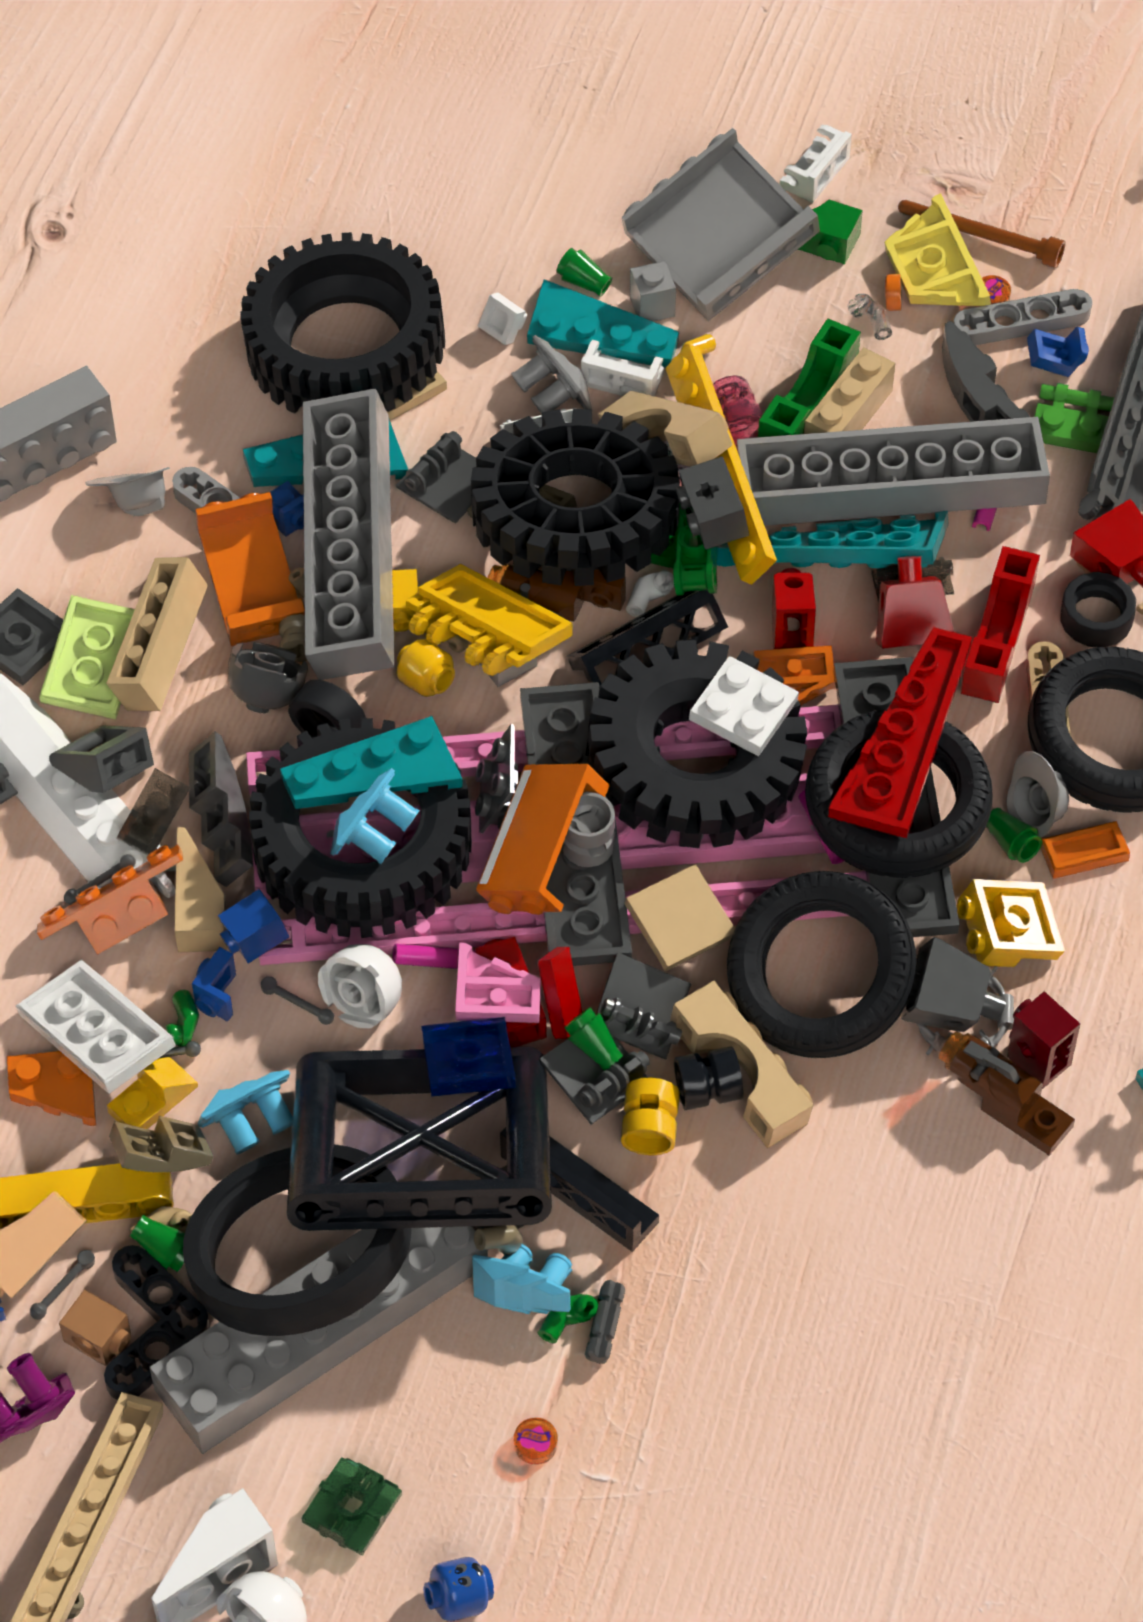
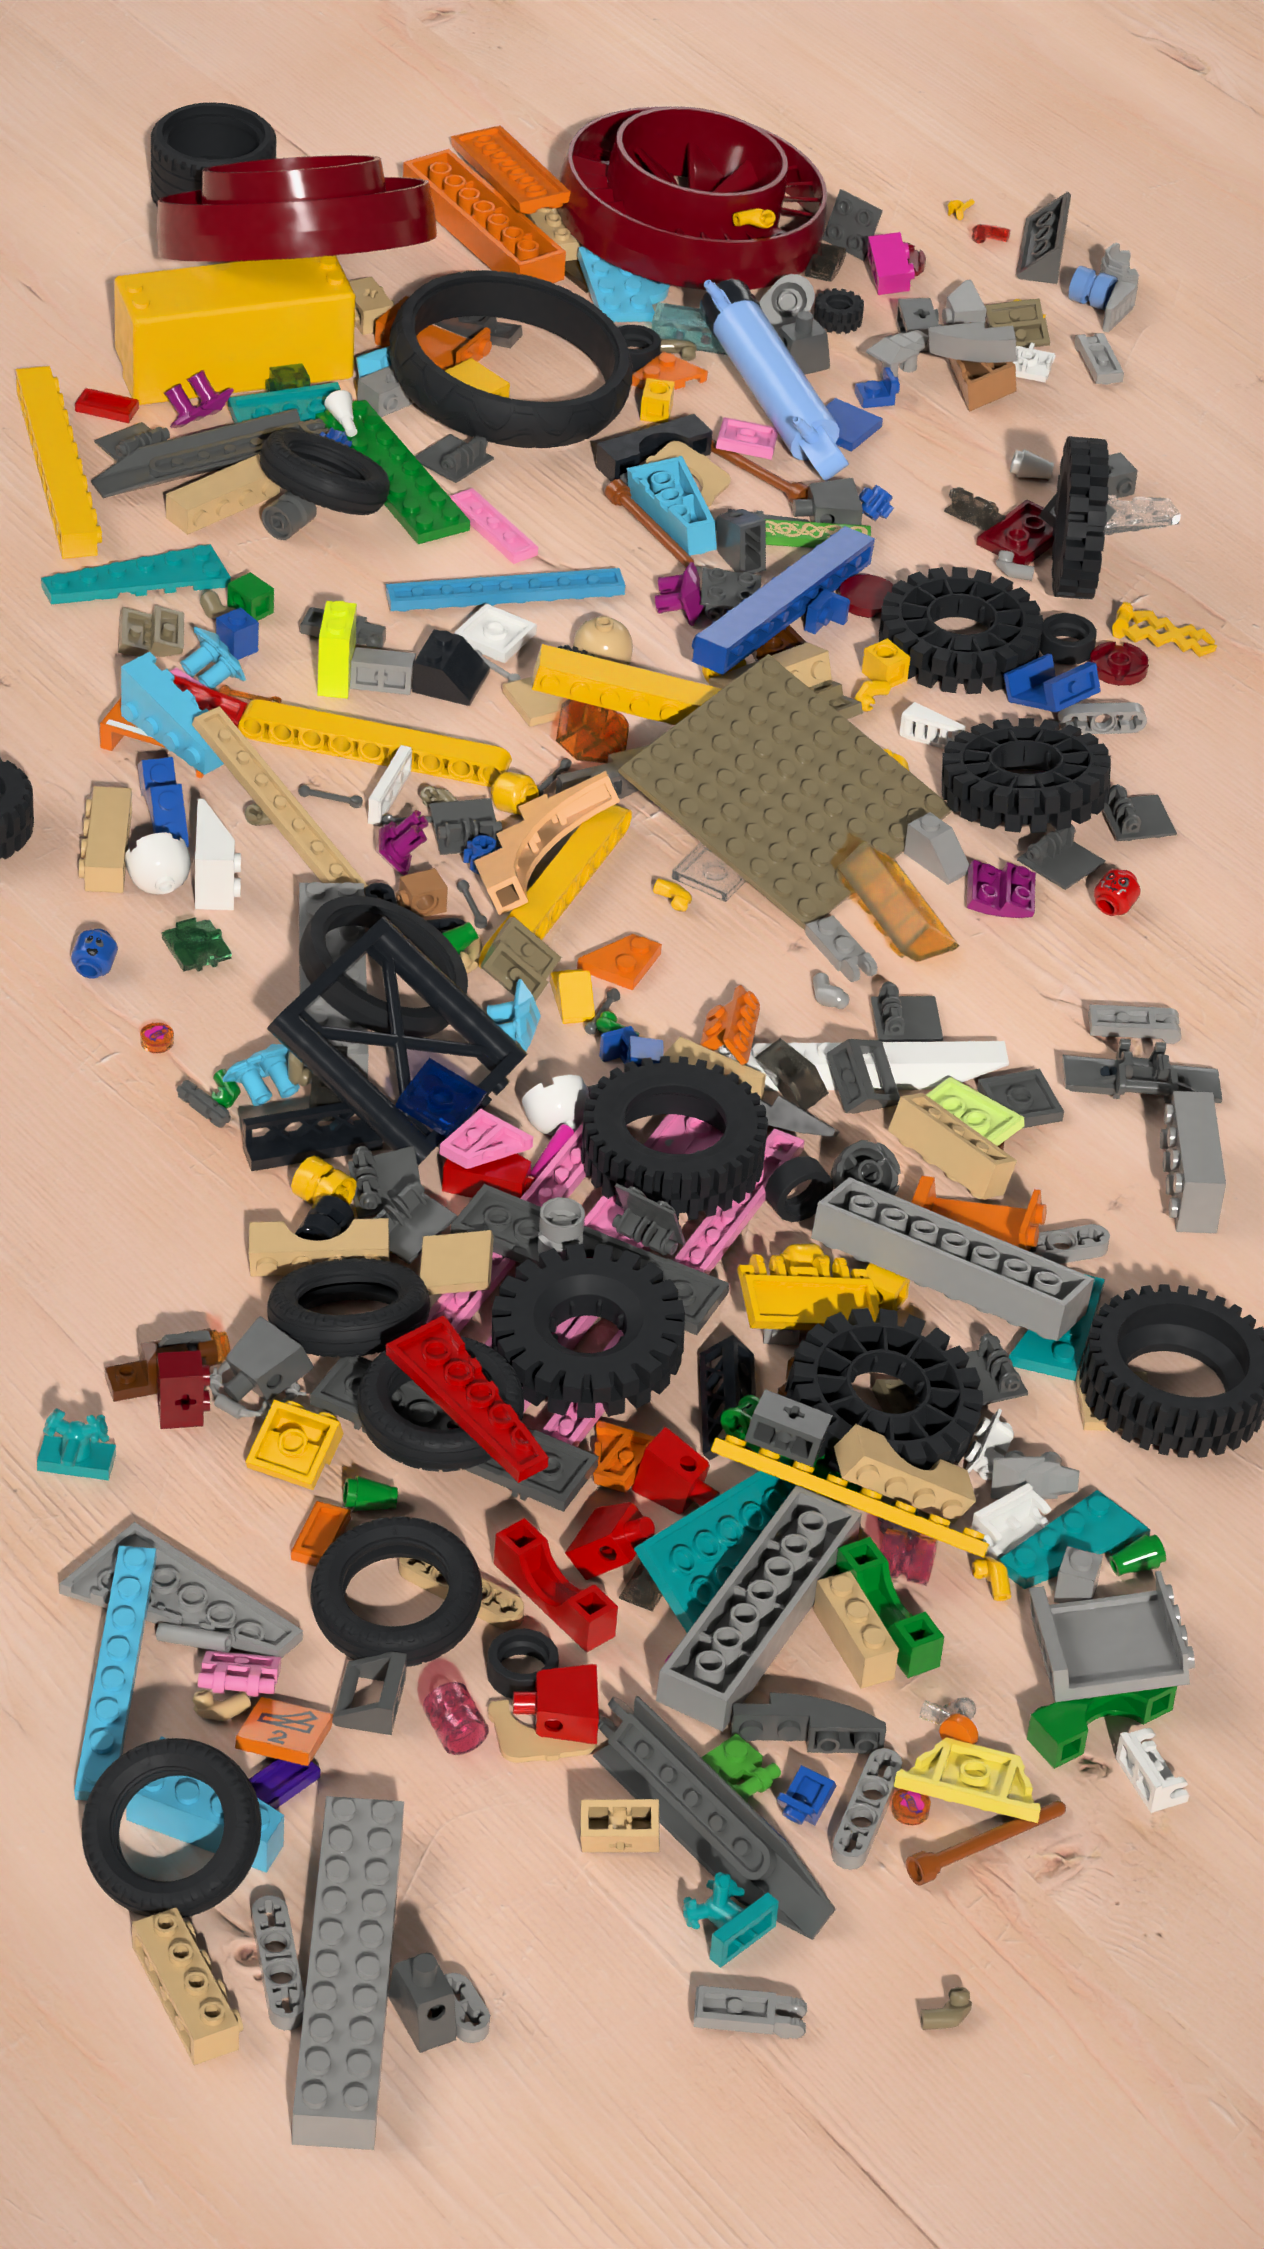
camera: 120 degrees right, 15 degrees down
(95, 1026) = (641, 977): white tile -> none
(126, 860) = (758, 1040): dark grey hinge -> none
(136, 493) = (1113, 1199): light grey piece -> none
(352, 824) = (653, 1088): medium azure connector -> none
(412, 750) = (699, 1136): teal wing -> none
(502, 318) = (1124, 1479): white tile -> none
(534, 835) = (604, 1218): orange panel -> none
(560, 989) = (455, 1179): red tile -> none
(593, 1038) = (404, 1172): green cone -> none
(743, 705) = (584, 1344): white plate -> none
(1037, 792) = (380, 1499): light grey piece -> none

